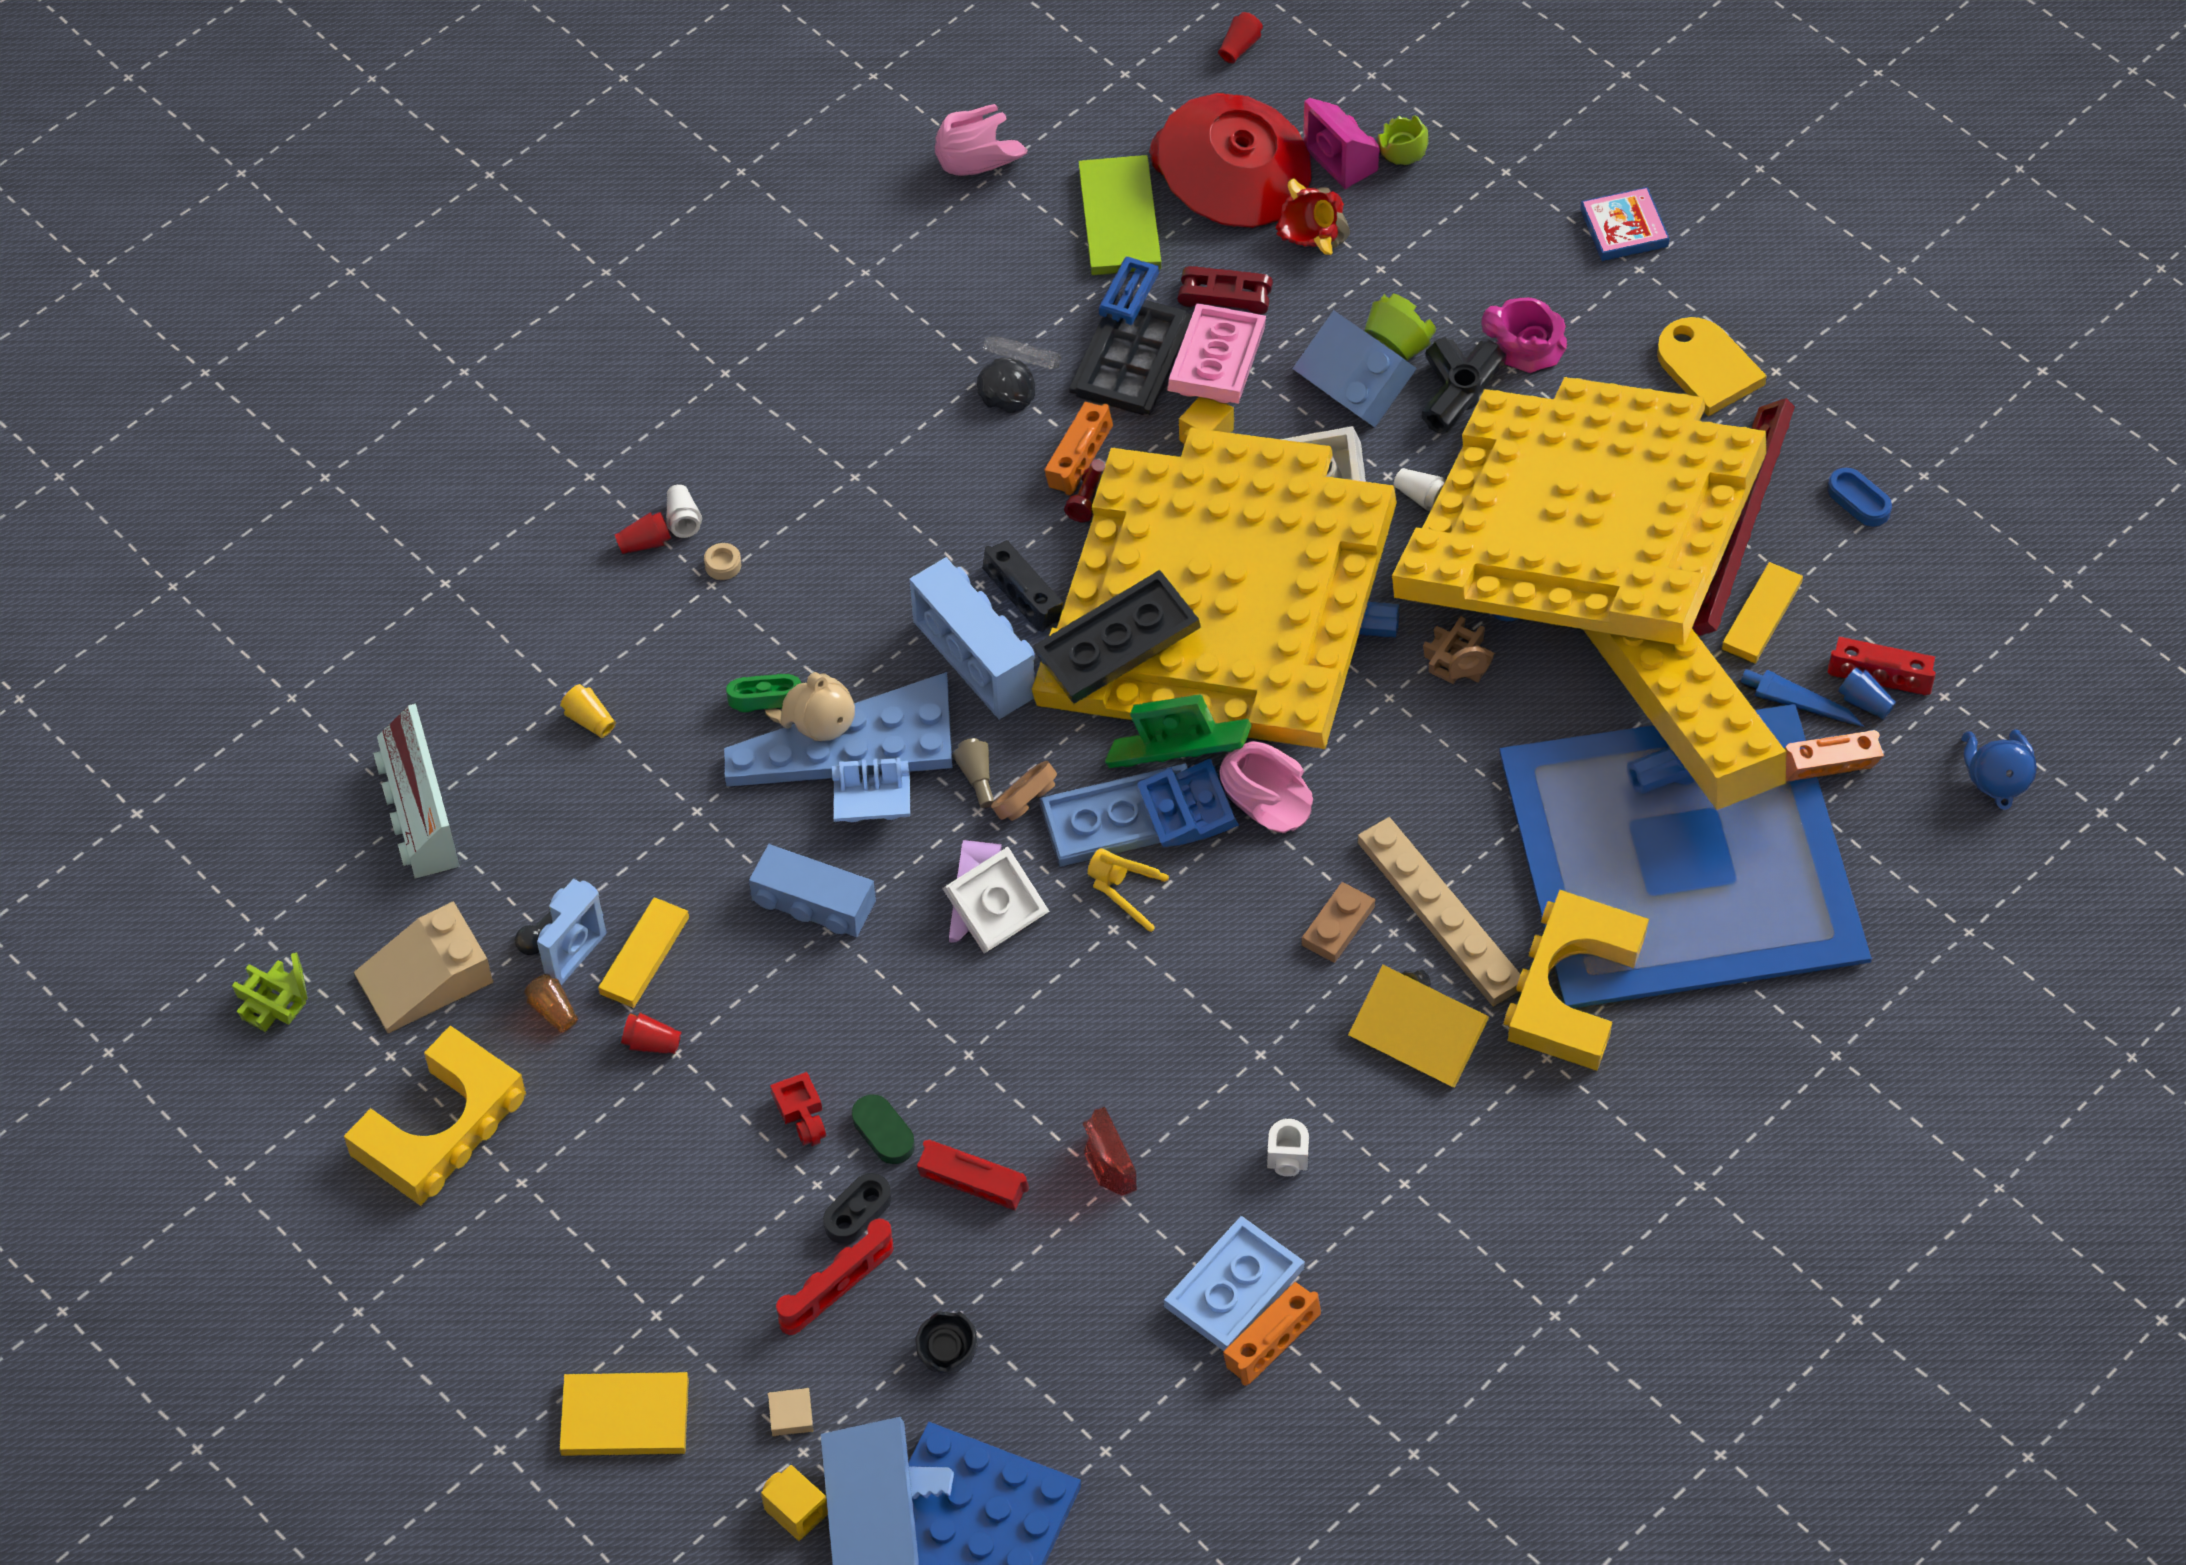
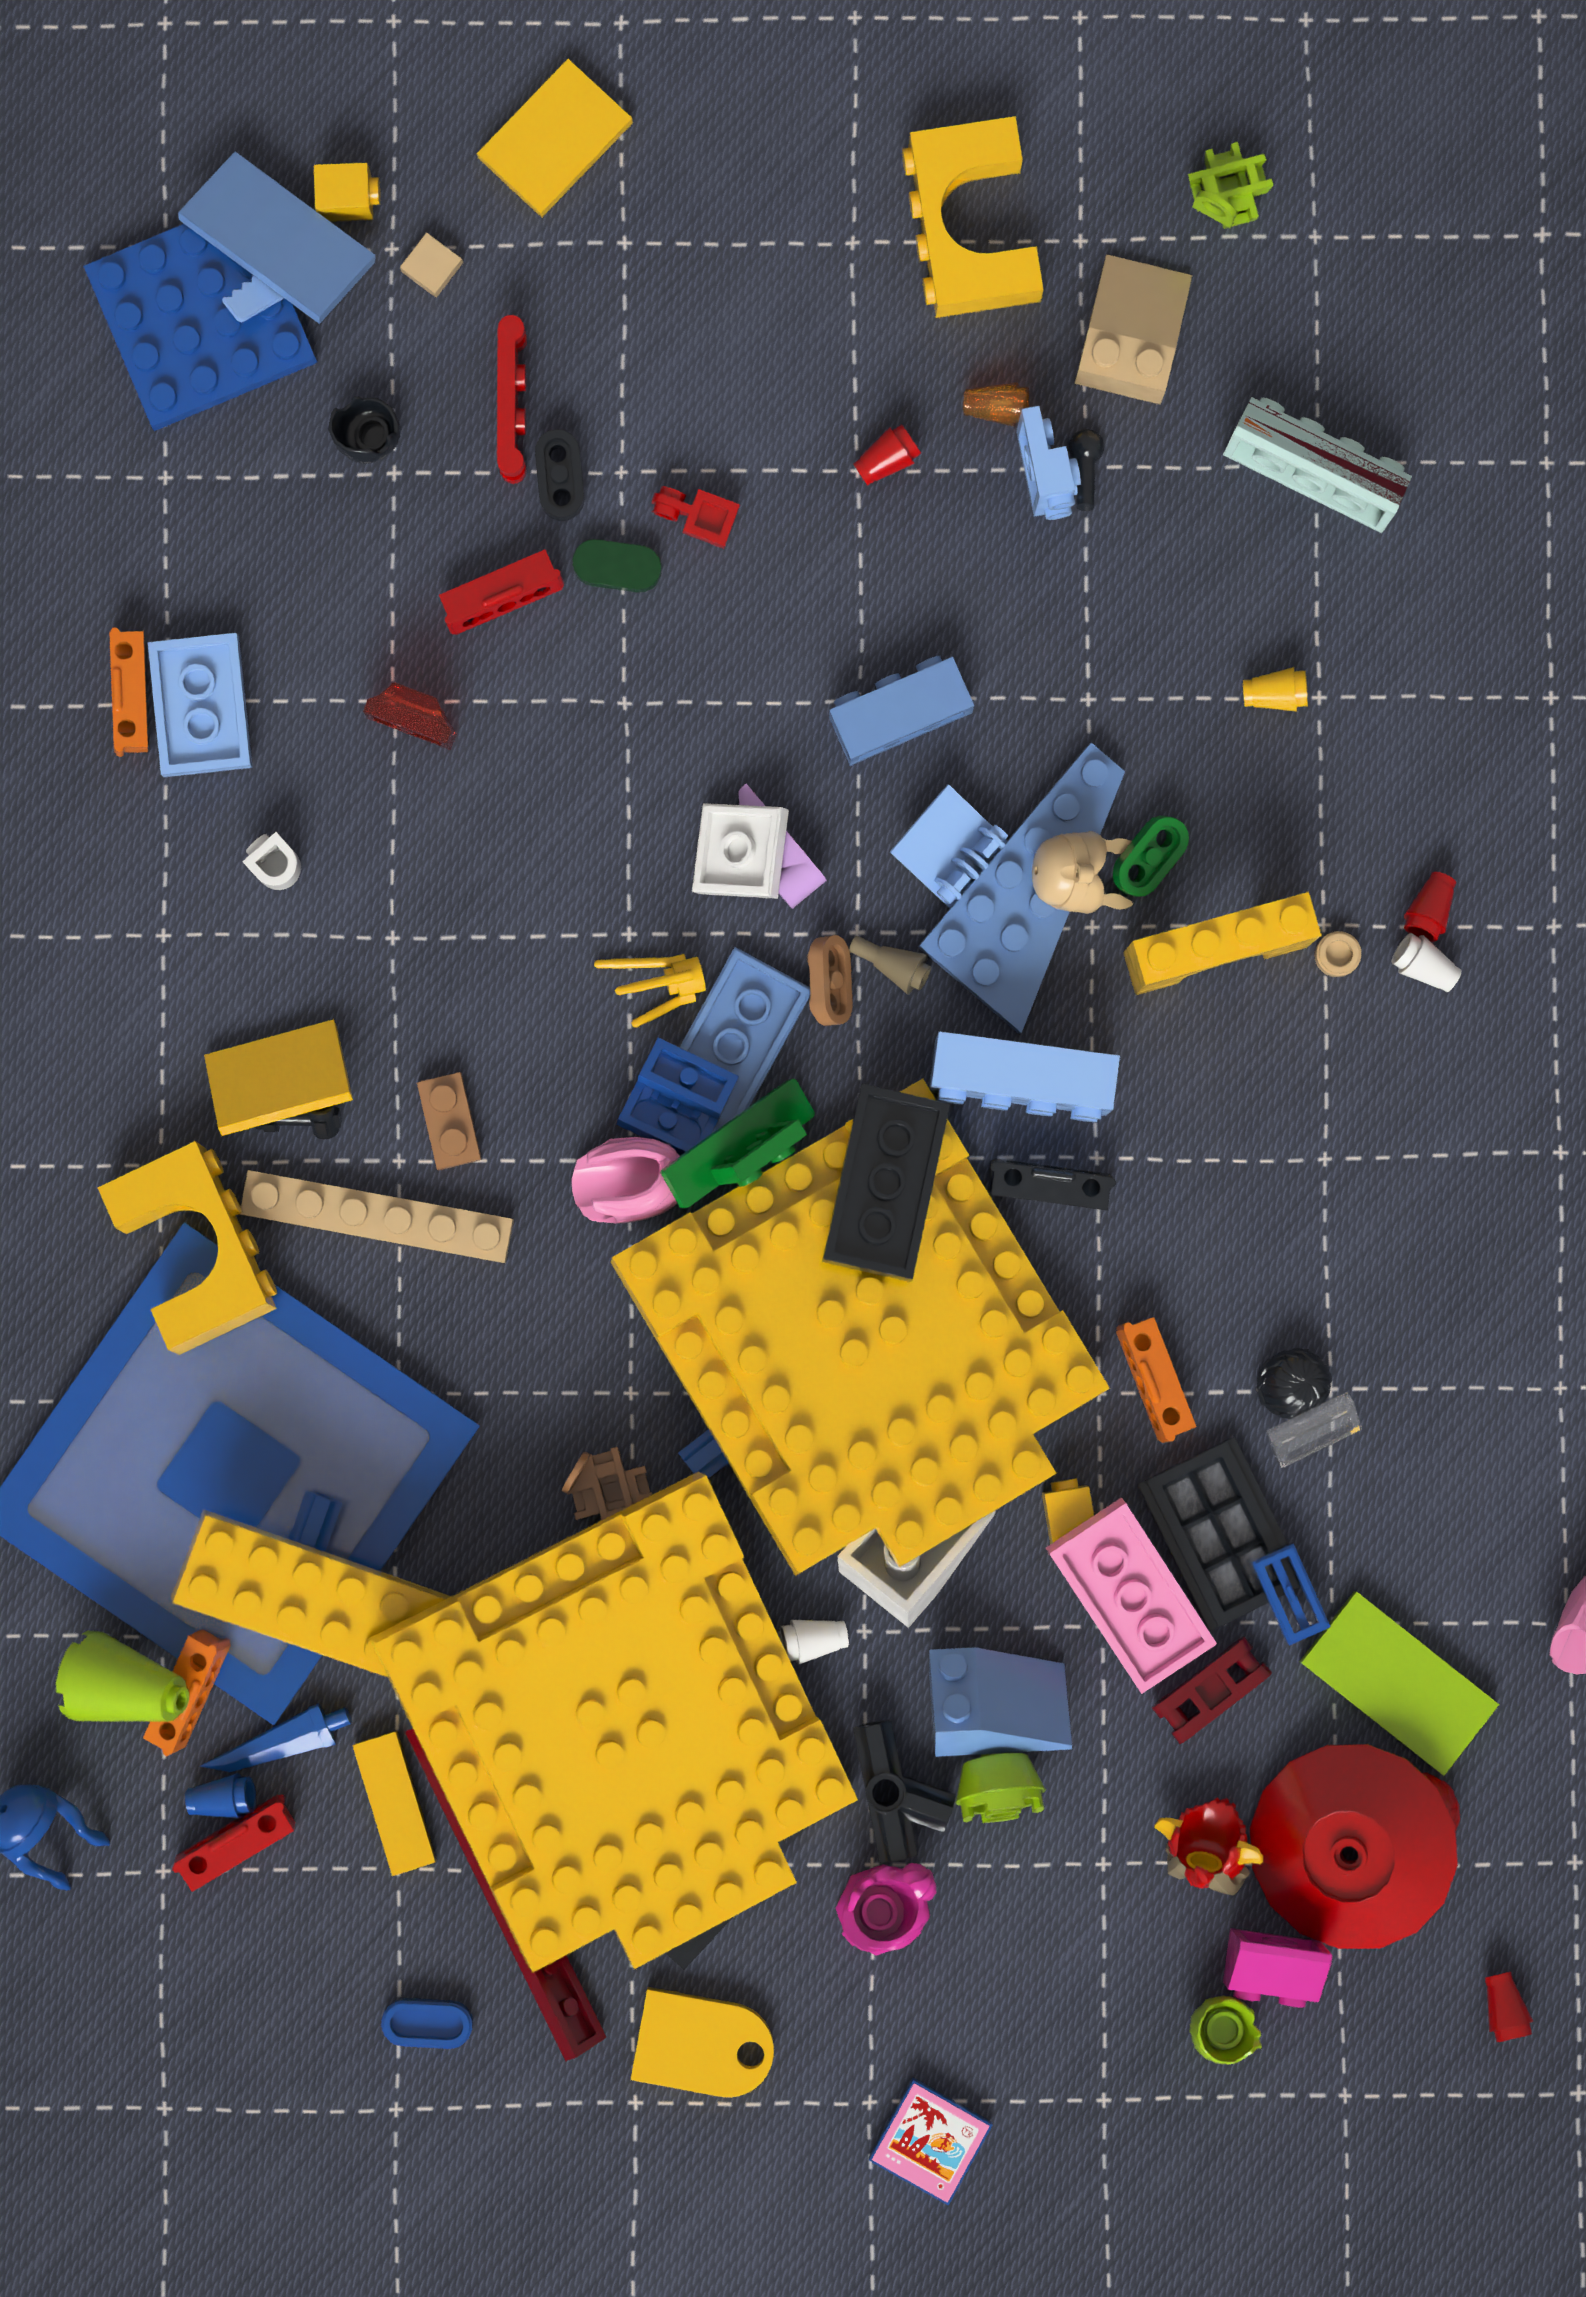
camera: 130 degrees right, 30 degrees up
(643, 952) = (980, 525): yellow tile -> none
(746, 572) = (1256, 931): none -> yellow arch
(1080, 506) = (1091, 1320): dark red piece -> none
(1865, 776) = (117, 1684): none -> lime cone

